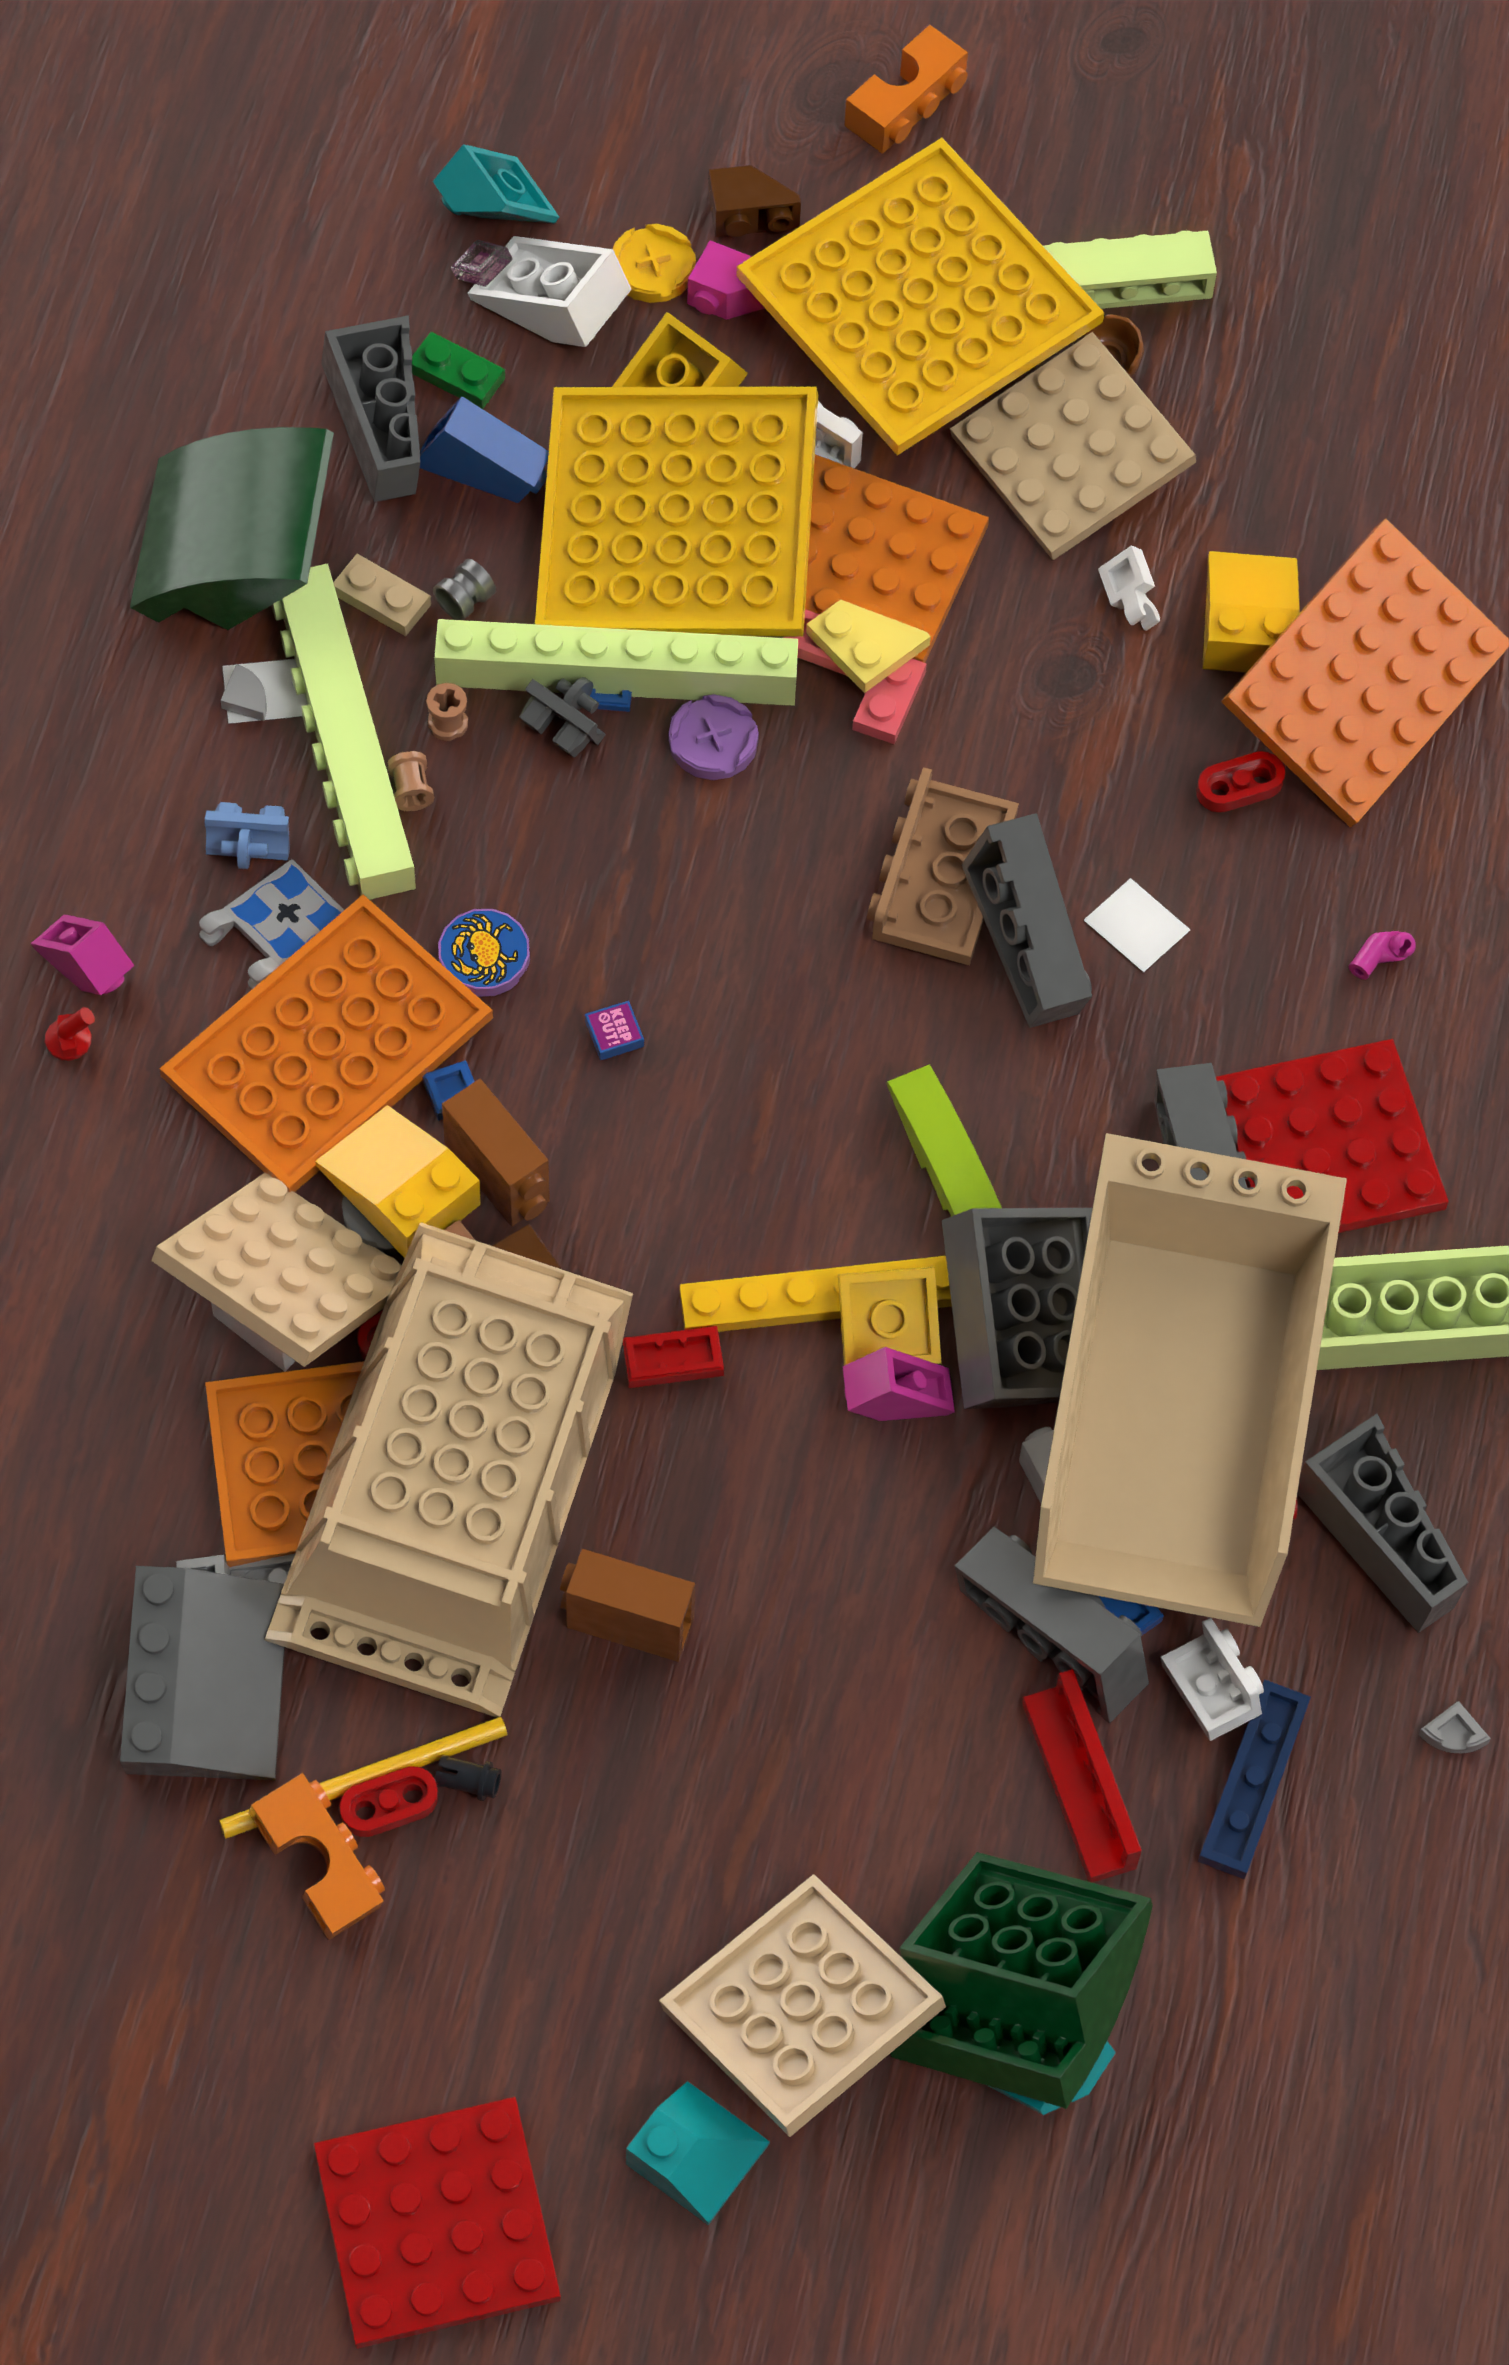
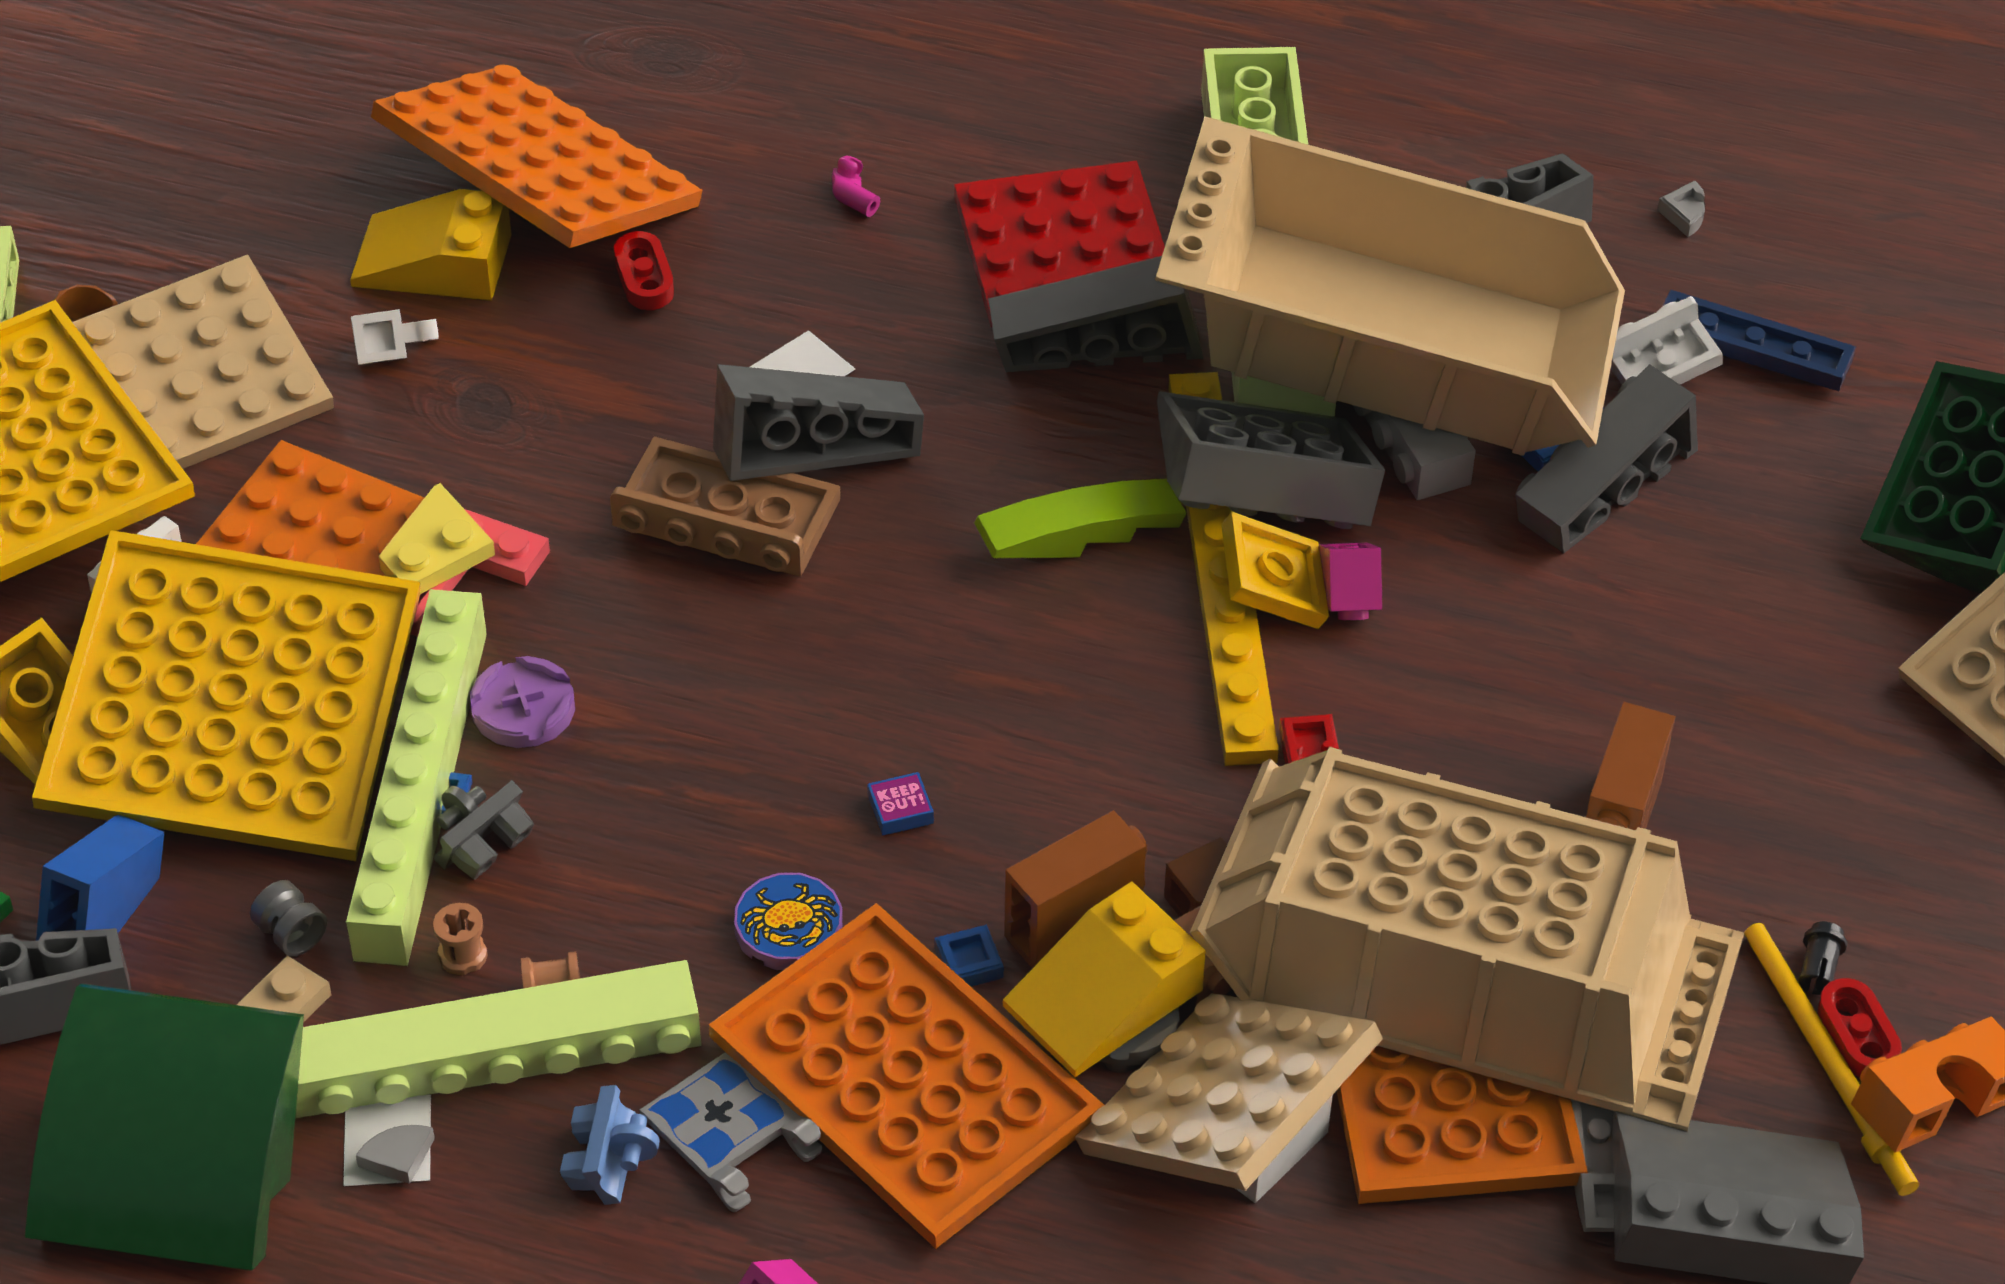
camera: 85 degrees left, 15 degrees down
(1082, 1779) = (1766, 466): red fence -> none

